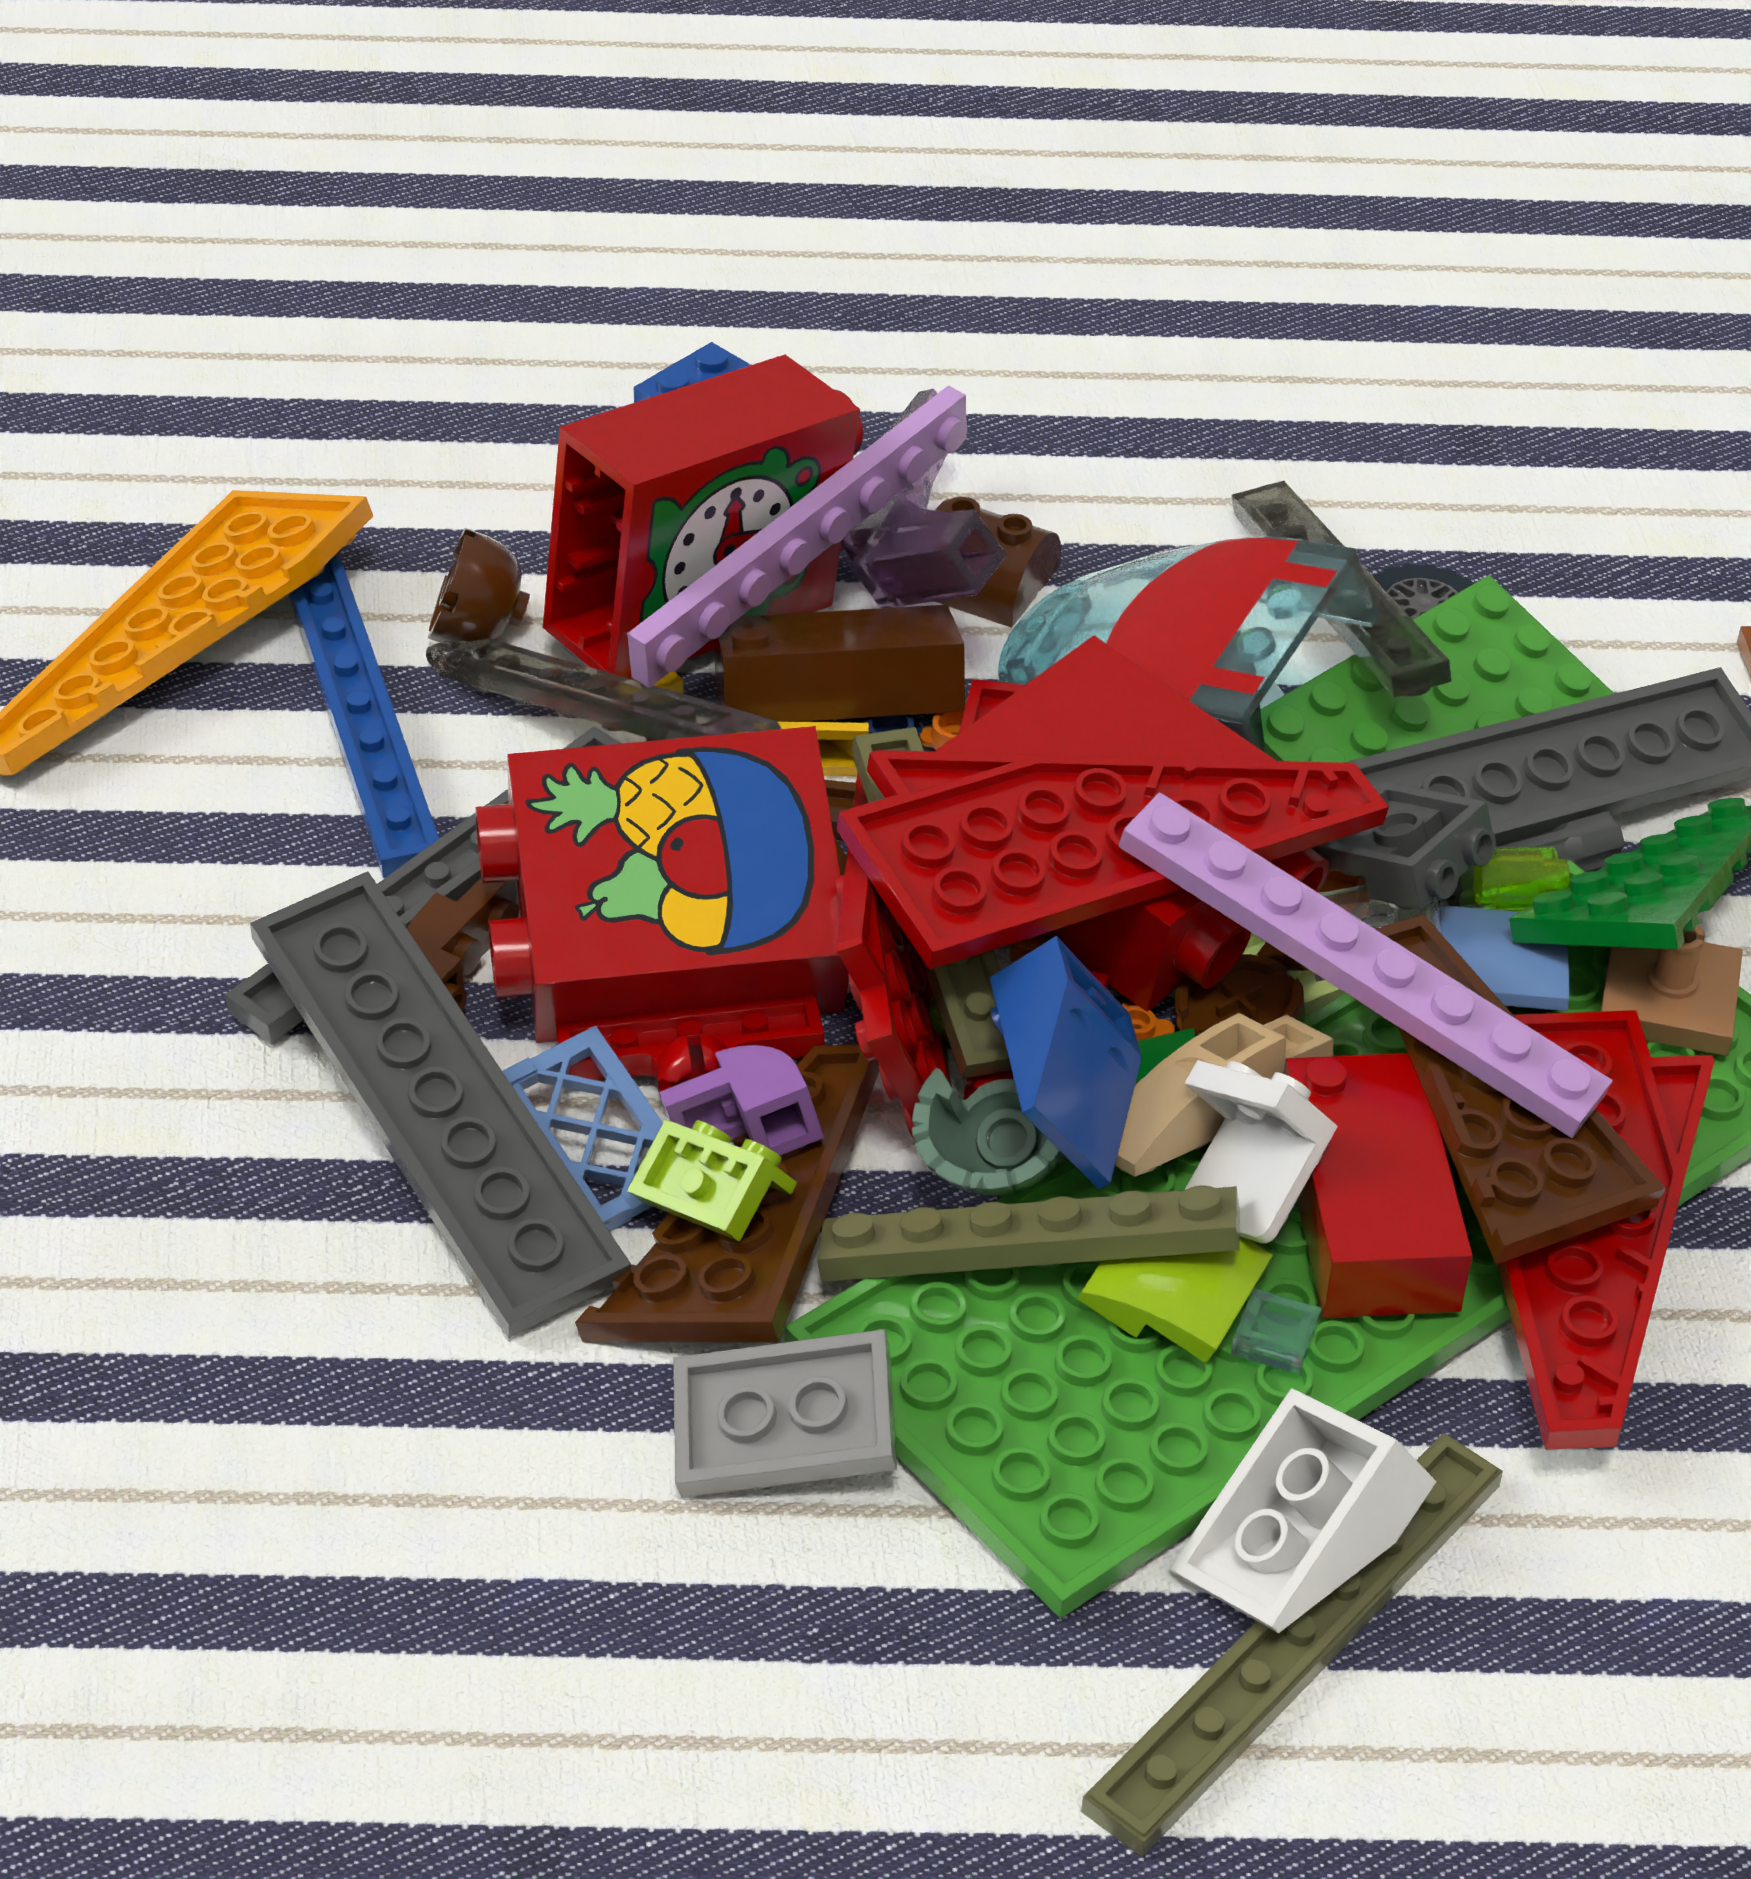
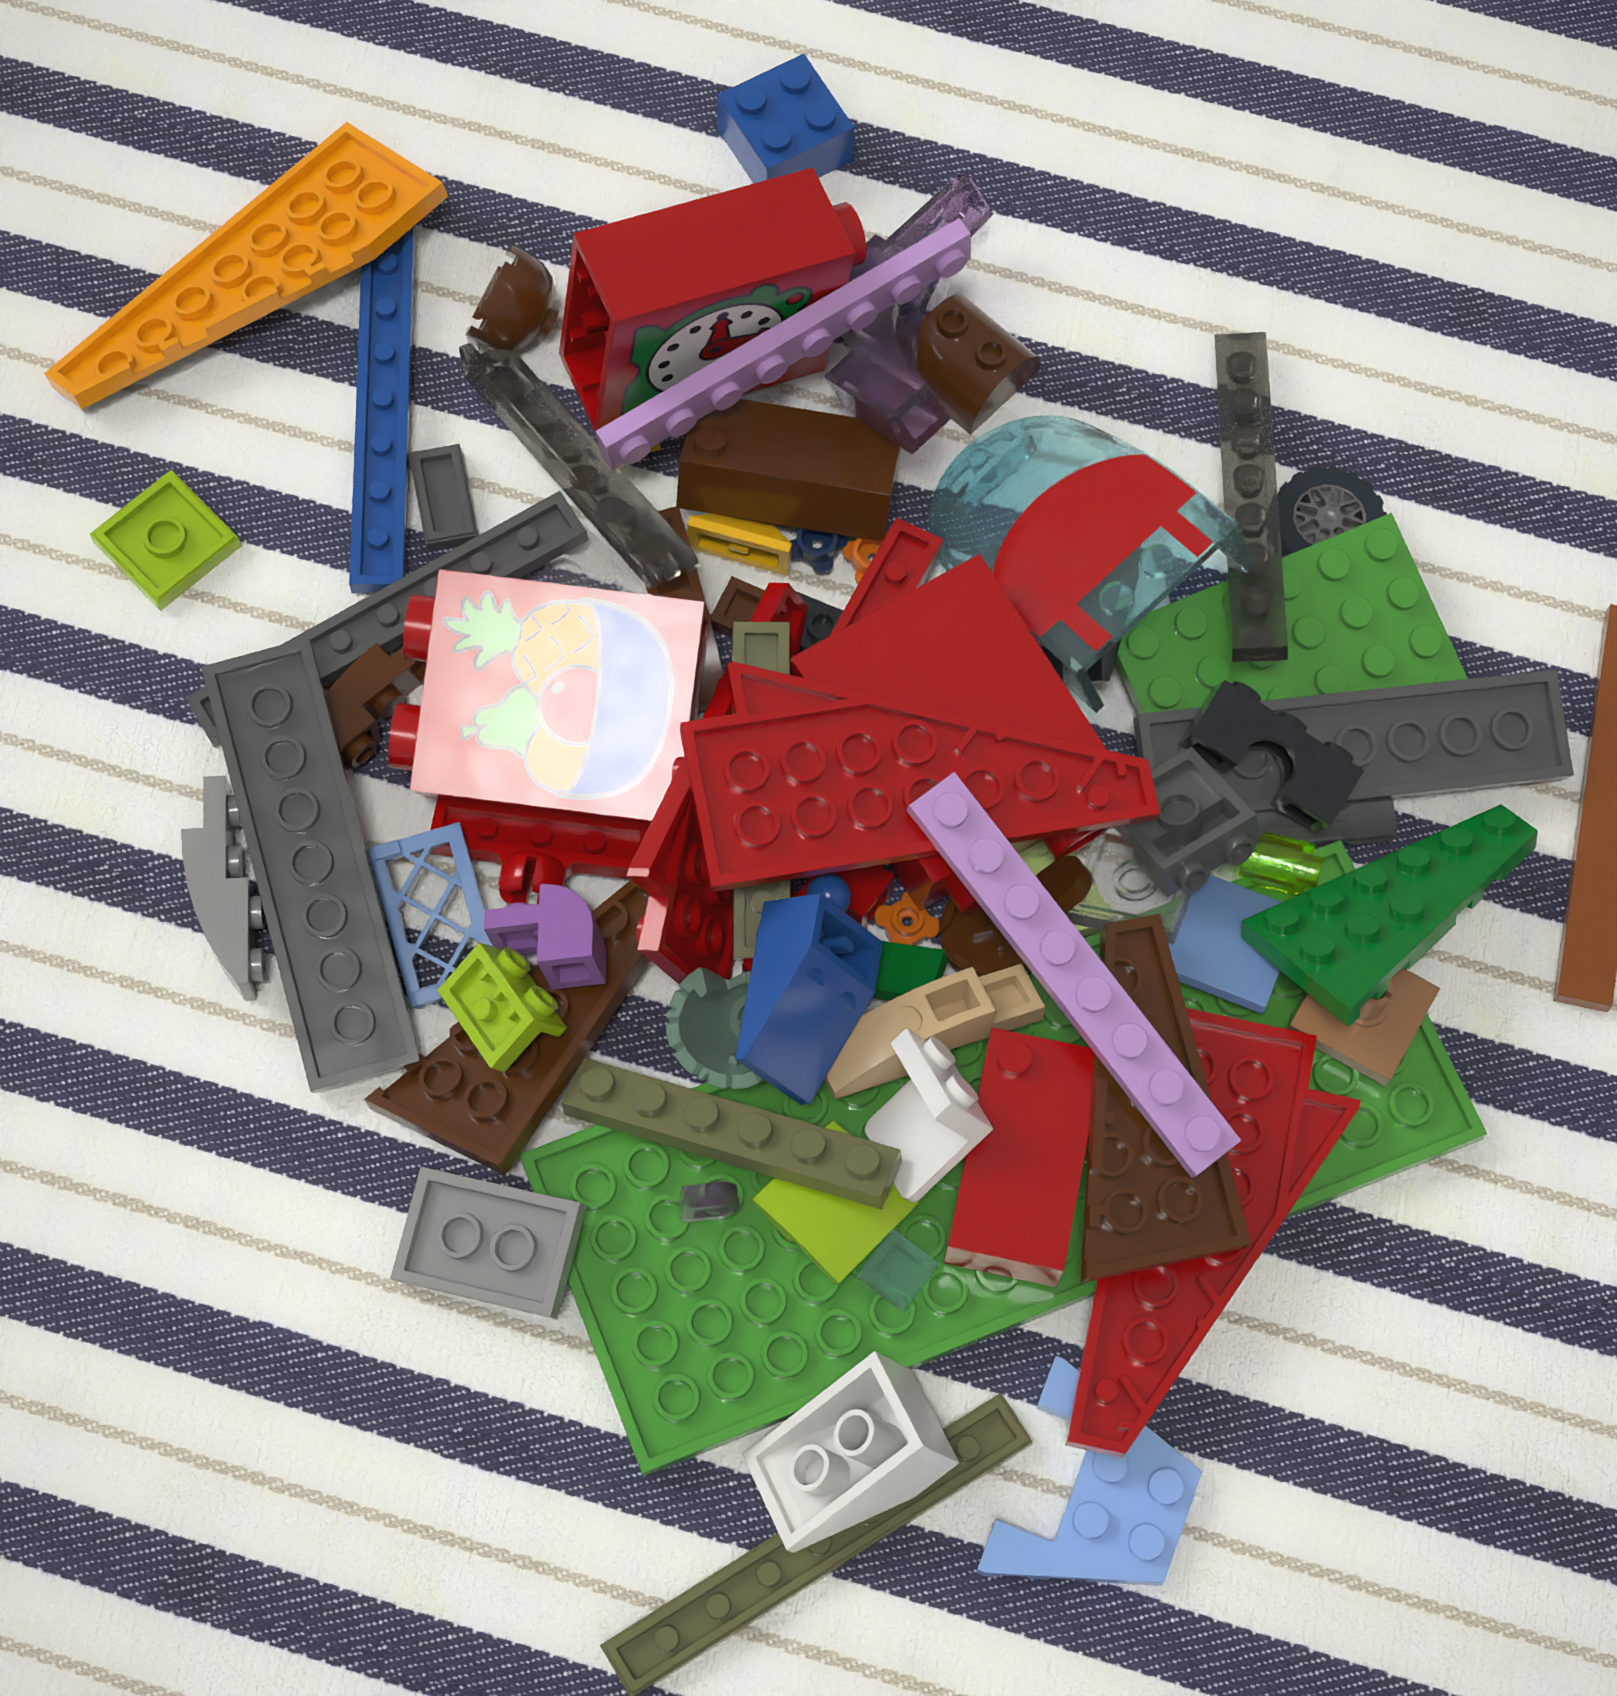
camera: 15 degrees right, 25 degrees up
(147, 874) = (165, 540): none -> lime tile
(335, 1167) = (220, 893): none -> light grey slope
(453, 774) = (443, 497): none -> dark grey tile
(1028, 1306) = (708, 1201): none -> tile
(1518, 780) = (1314, 774): none -> black arch
(1633, 1518) = (1118, 1517): none -> light blue wing

